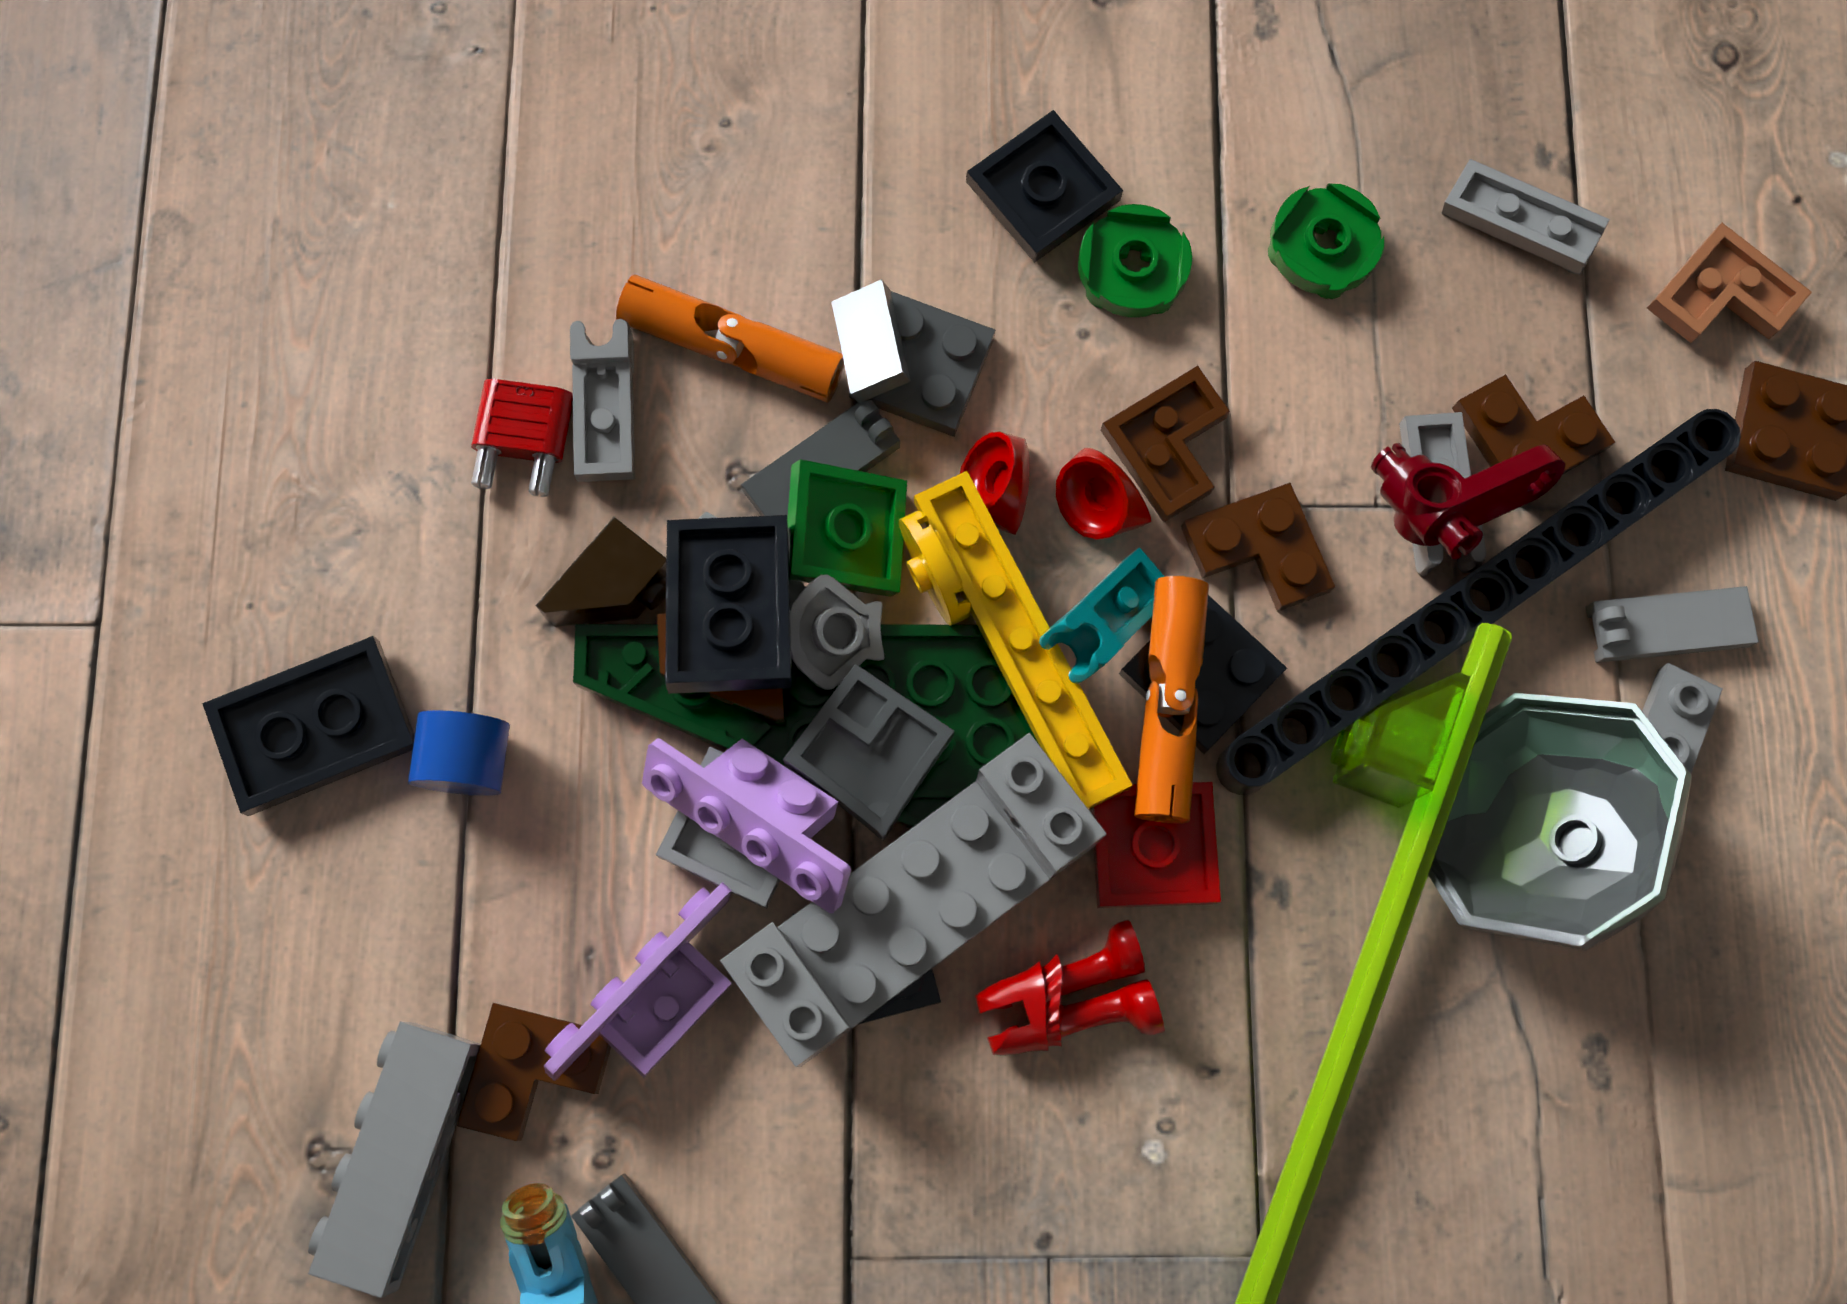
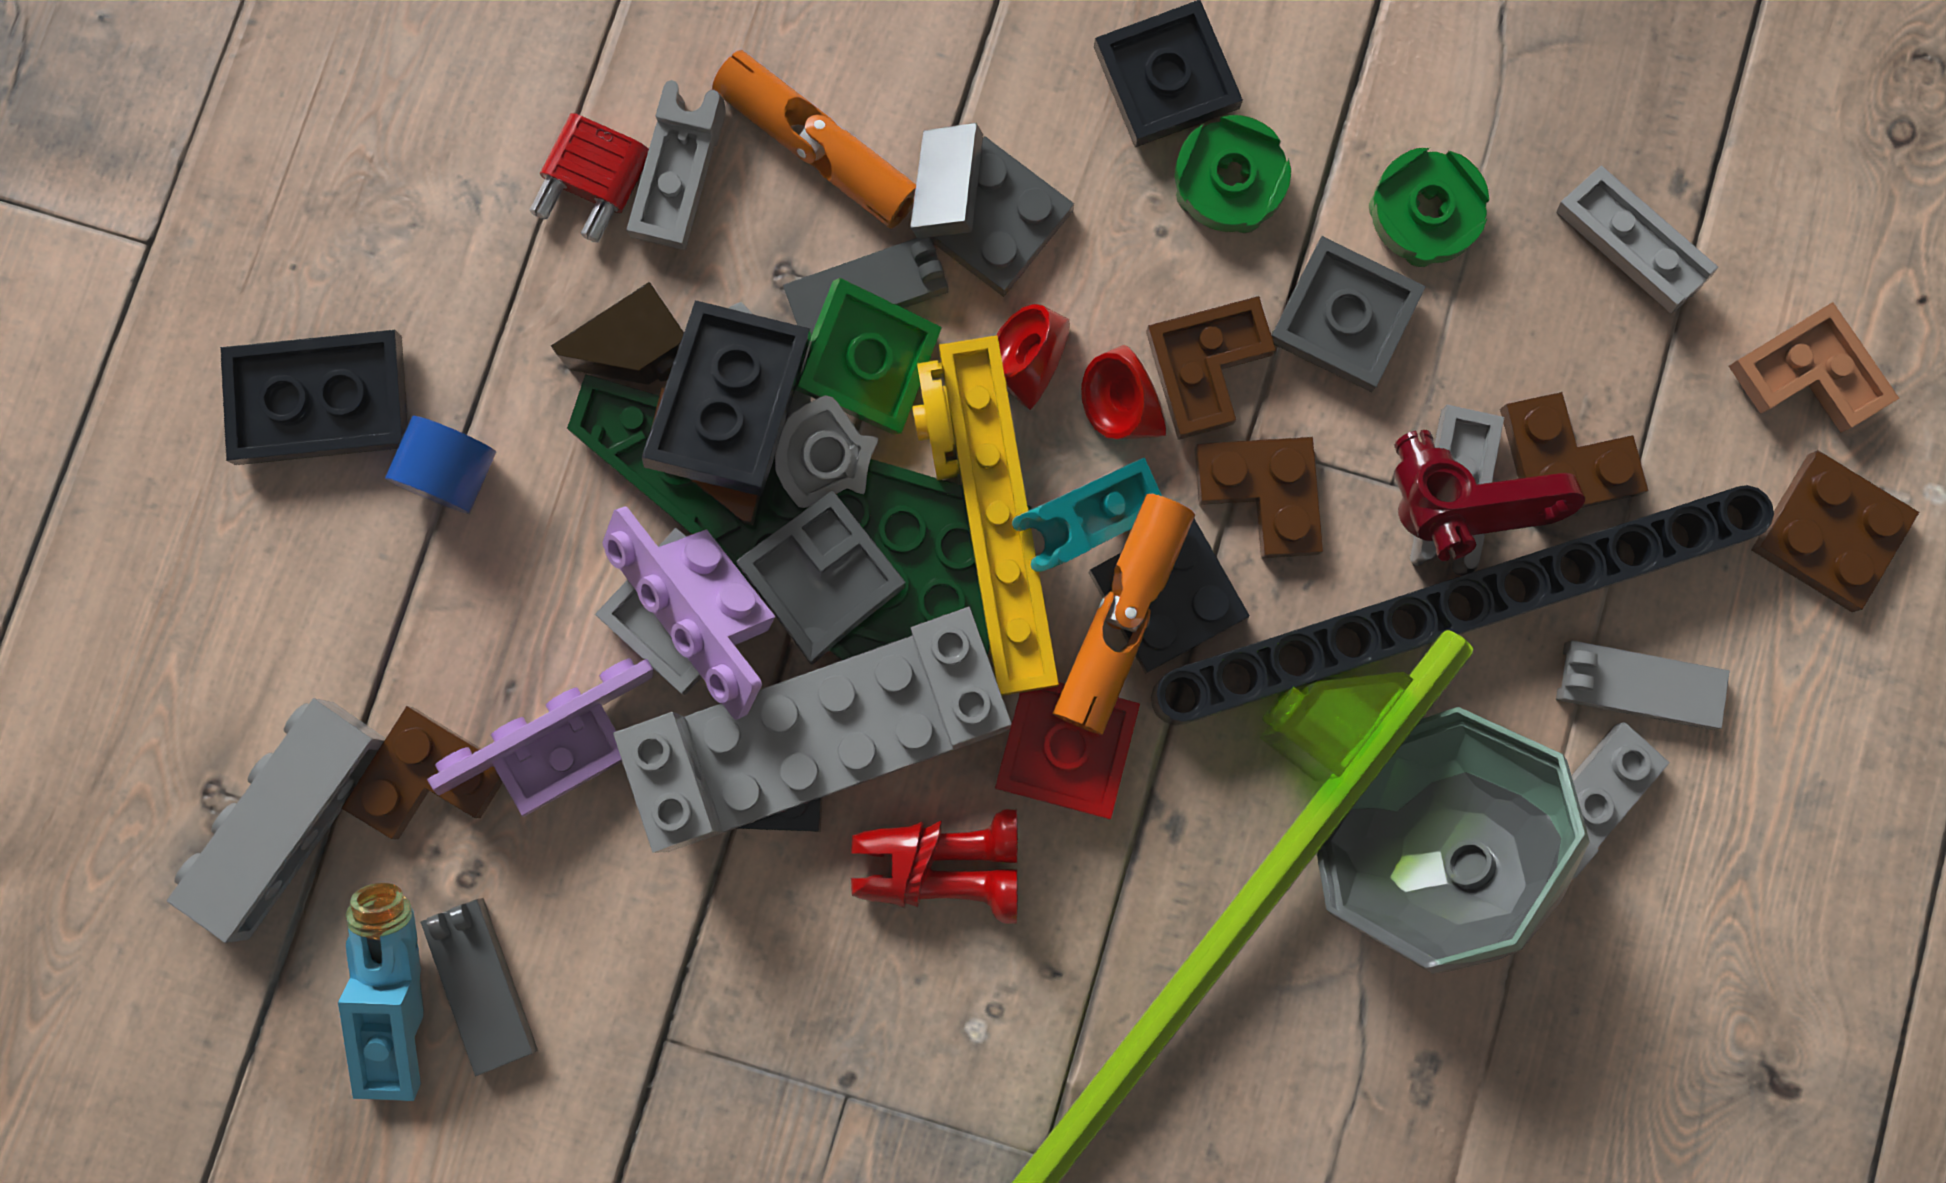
camera: 20 degrees right, 5 degrees up
(1284, 359) = (1347, 314): none -> dark grey plate

